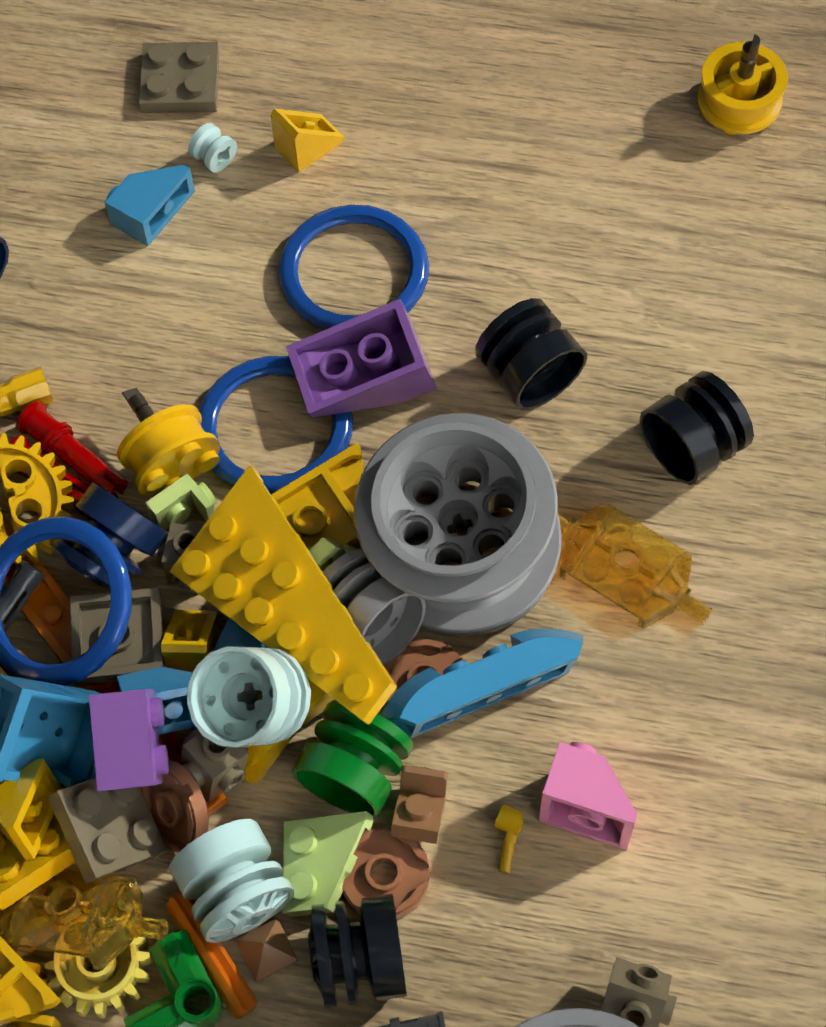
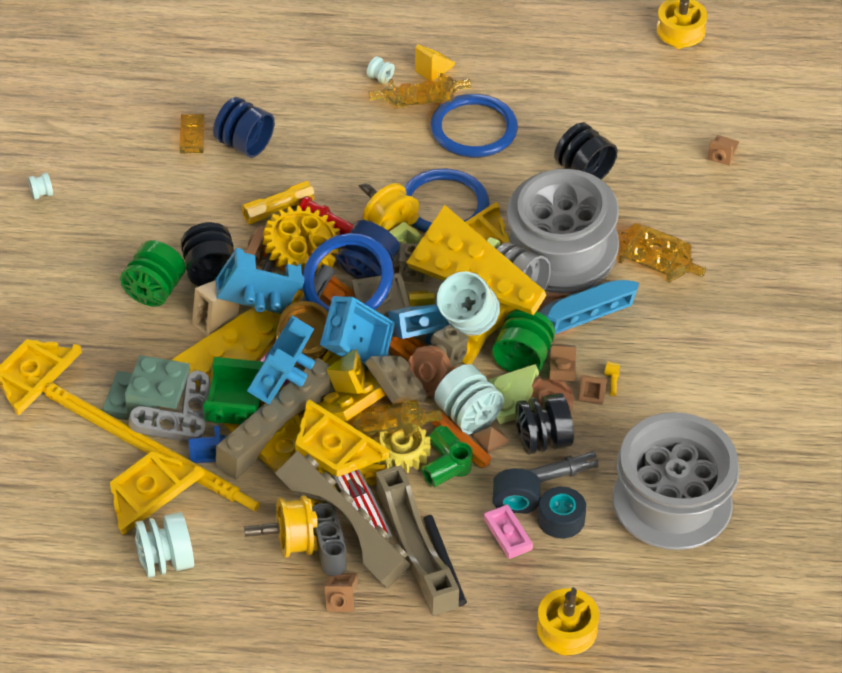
camera: 10 degrees left, 15 degrees down
(128, 739) = (405, 328): medium lavender brick -> none
(149, 201) = (348, 98): dark azure slope -> none
(179, 77) = (351, 38): dark tan plate -> none
(269, 200) = (420, 94): none -> clear yellow plate
(362, 363) = (491, 165): medium lavender slope -> none
(465, 864) = (592, 389): none -> medium nougat slope
(586, 797) = (654, 350): bright pink slope -> none
(696, 427) = (684, 181): black wheel -> none
(778, 353) = (722, 150): none -> medium nougat bracket

